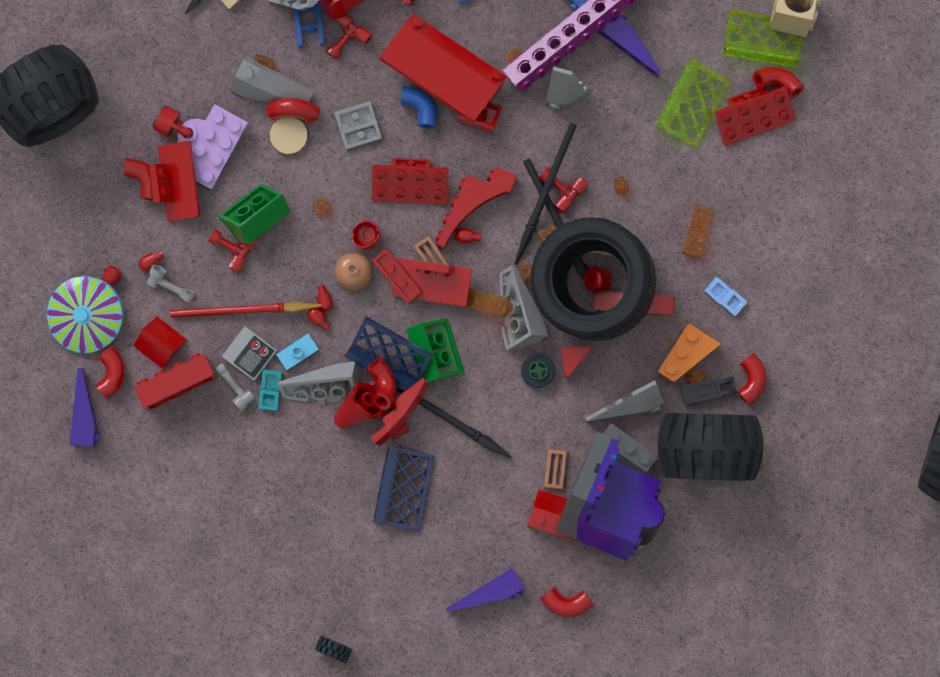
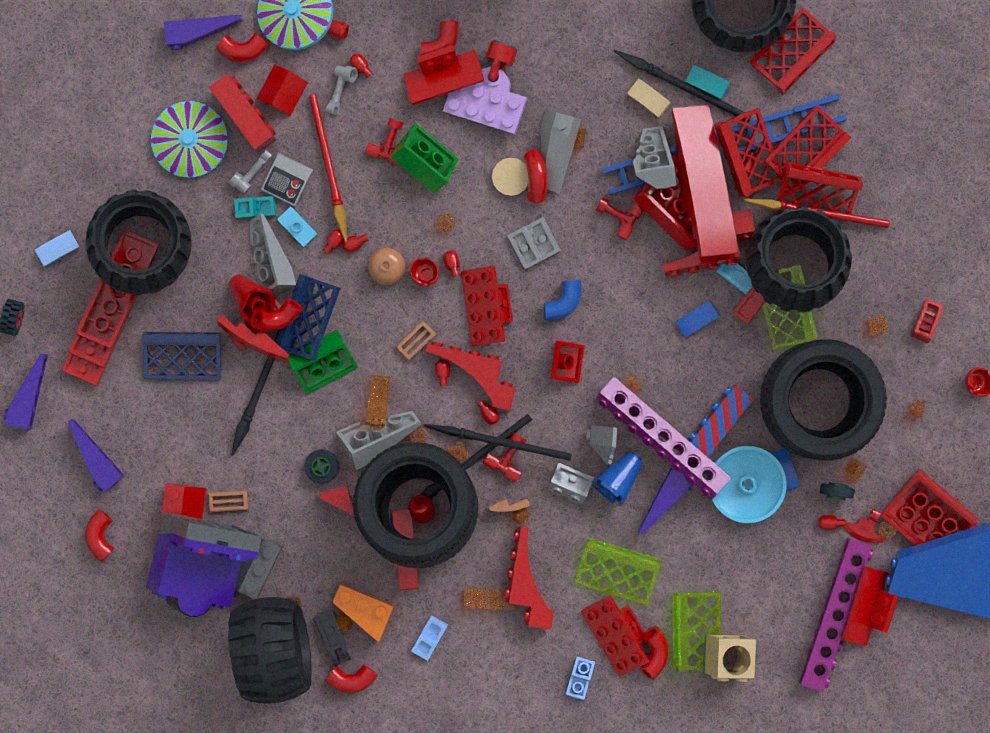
camera: 80 degrees right, 5 degrees up
(190, 442) = (189, 139): none -> dish
(247, 495) = (126, 206): none -> black tyre
(273, 593) = (56, 248): none -> light blue slope
(342, 551) = (107, 313): none -> red slope
(361, 207) = (452, 262): none -> red cylinder
(397, 276) = (389, 310): red tile -> none
(422, 654) = (24, 404): none -> dark purple slope
(439, 281) = (389, 346): red bracket -> none
(443, 68) = (603, 317): red slope -> none
(516, 198) = (488, 413): none -> red cylinder
(599, 132) = (570, 483): none -> light grey bracket
(603, 84) = (619, 478): none -> blue cone
(609, 199) = (503, 505): none -> nougat slope
(640, 401) = (308, 571): light grey wedge -> none
(689, 196) = (522, 586): none -> red arch
(790, 158) = (580, 678): none -> light blue slope

